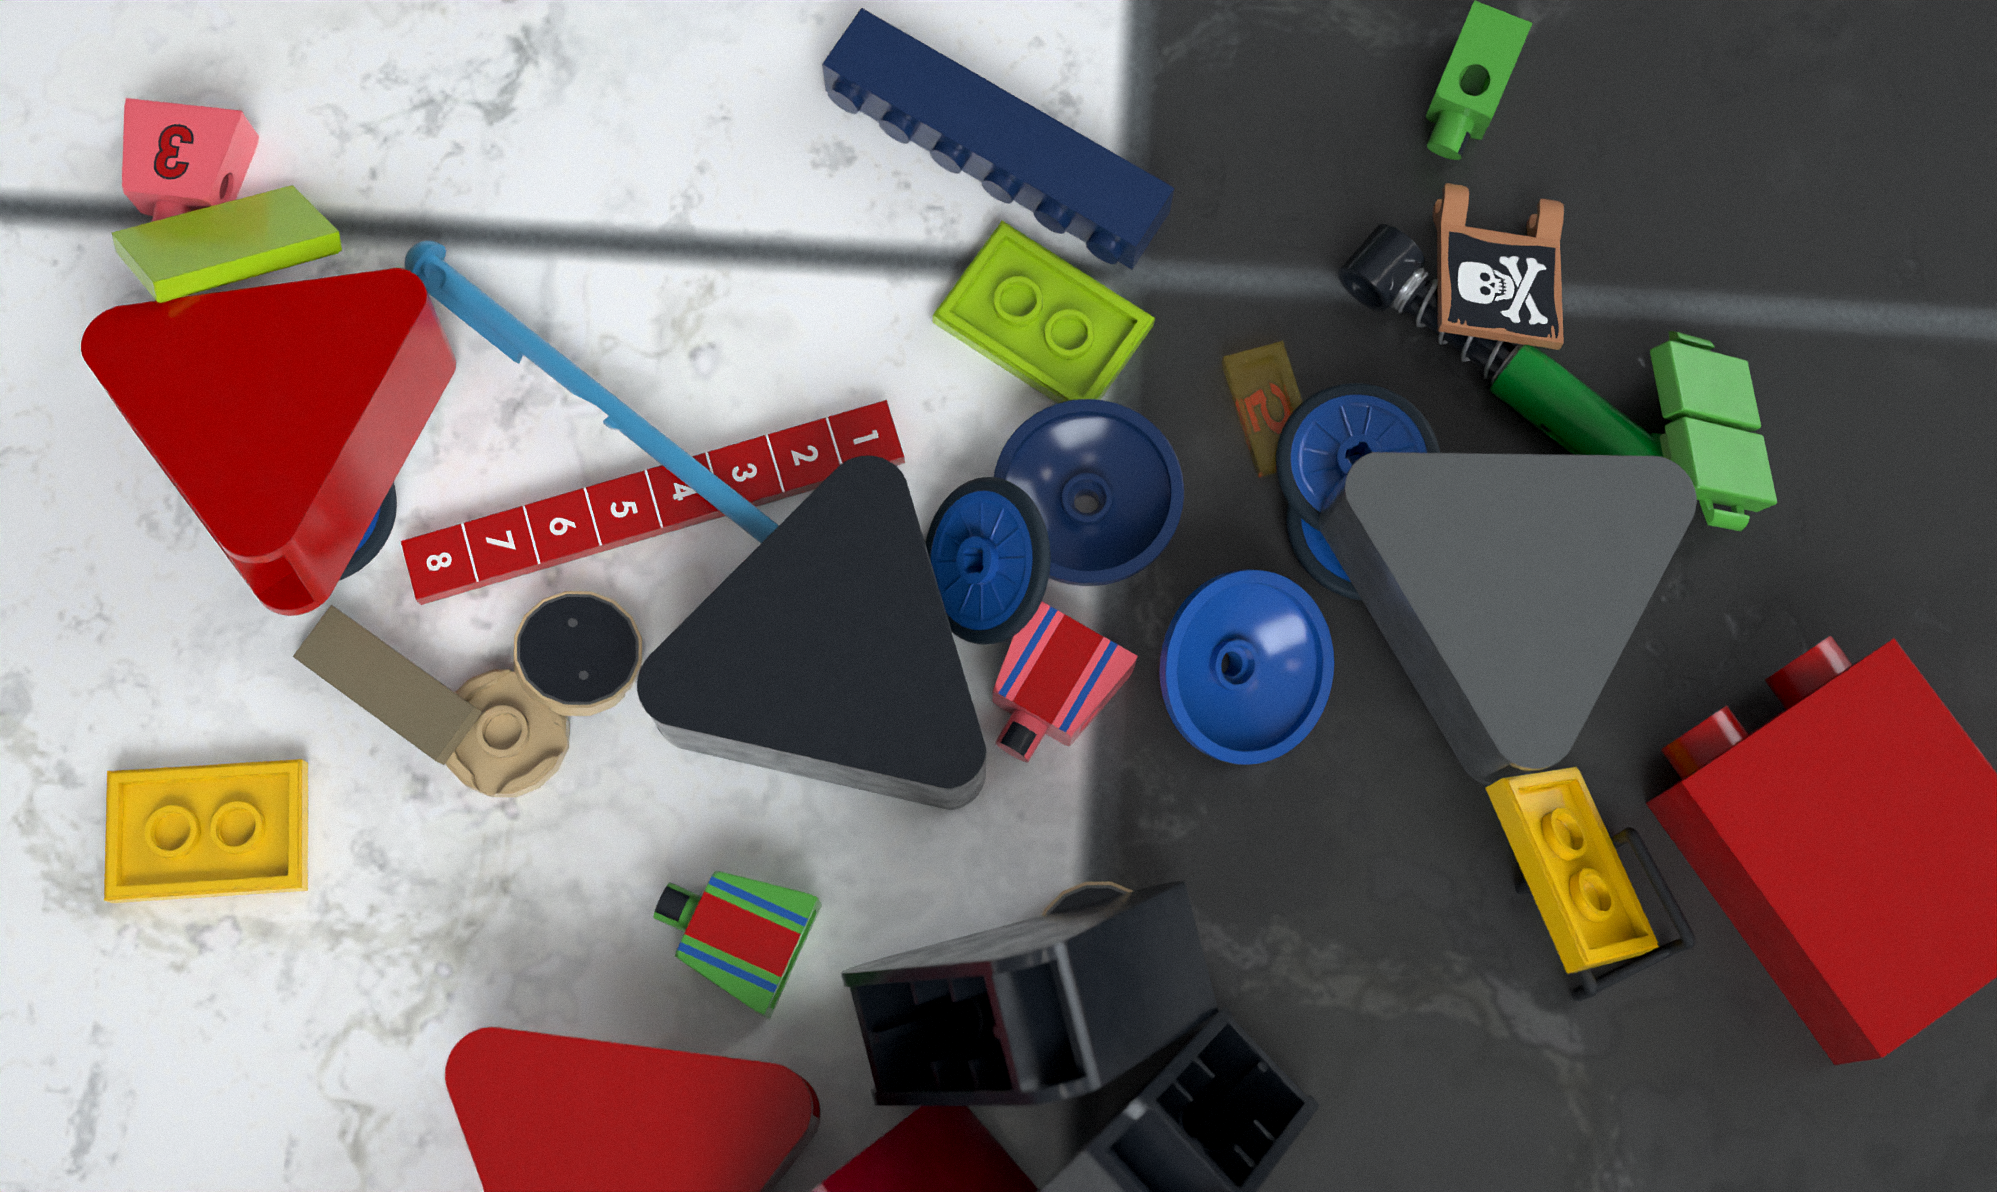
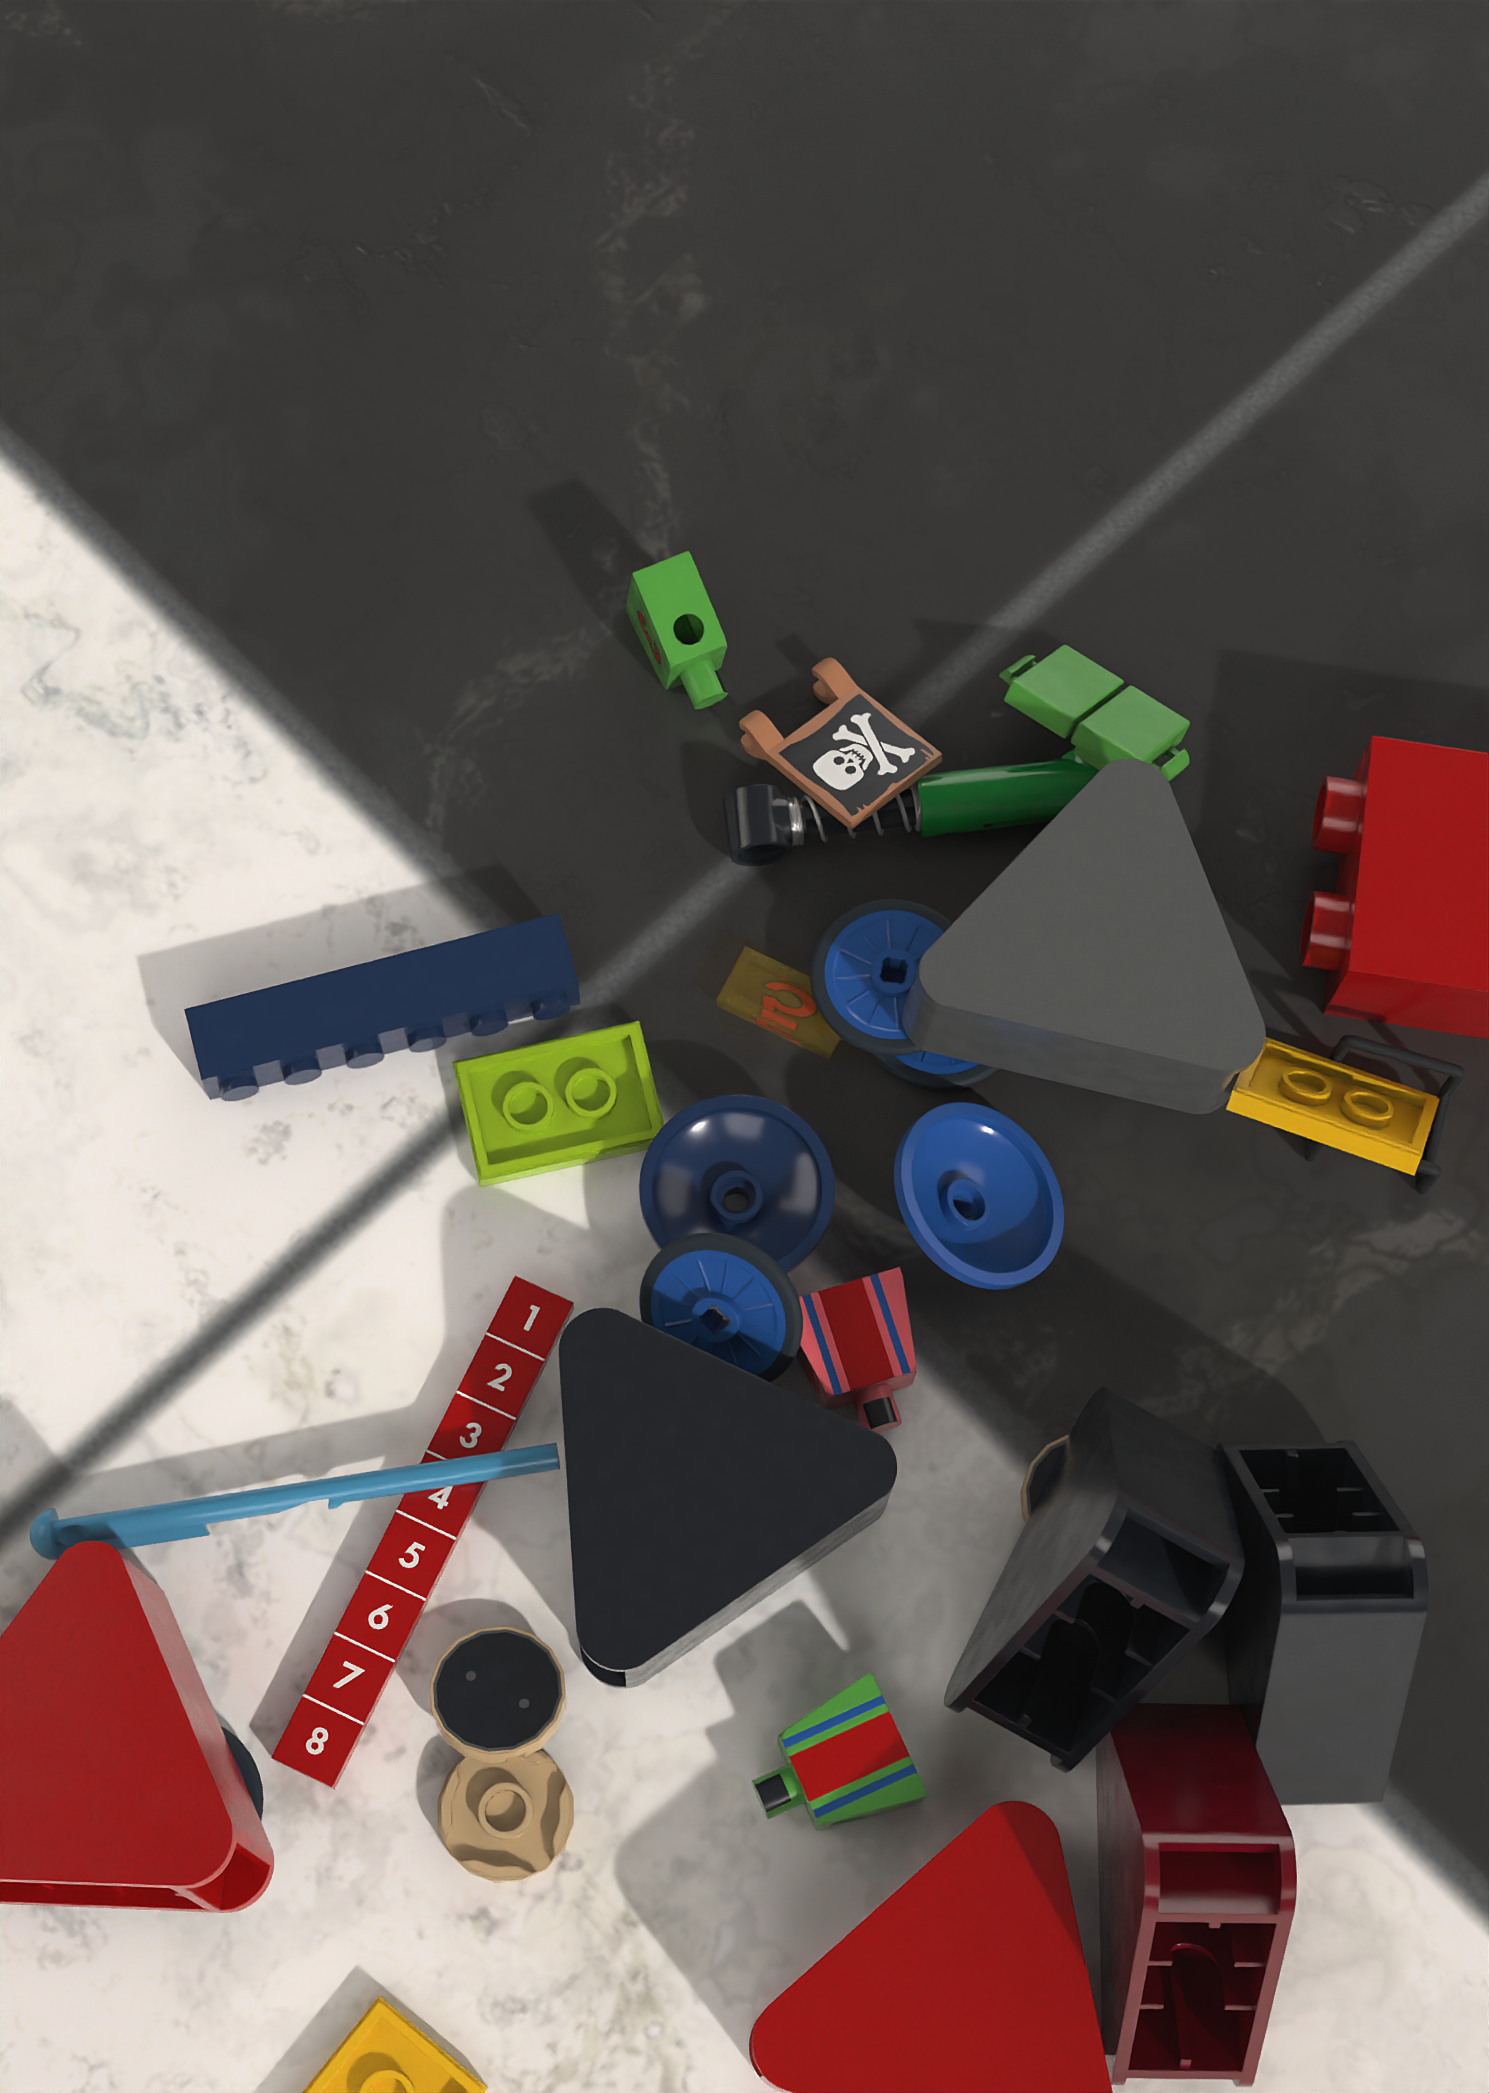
camera: 50 degrees left, 5 degrees down
(387, 685) = (382, 1870): dark tan tile -> none

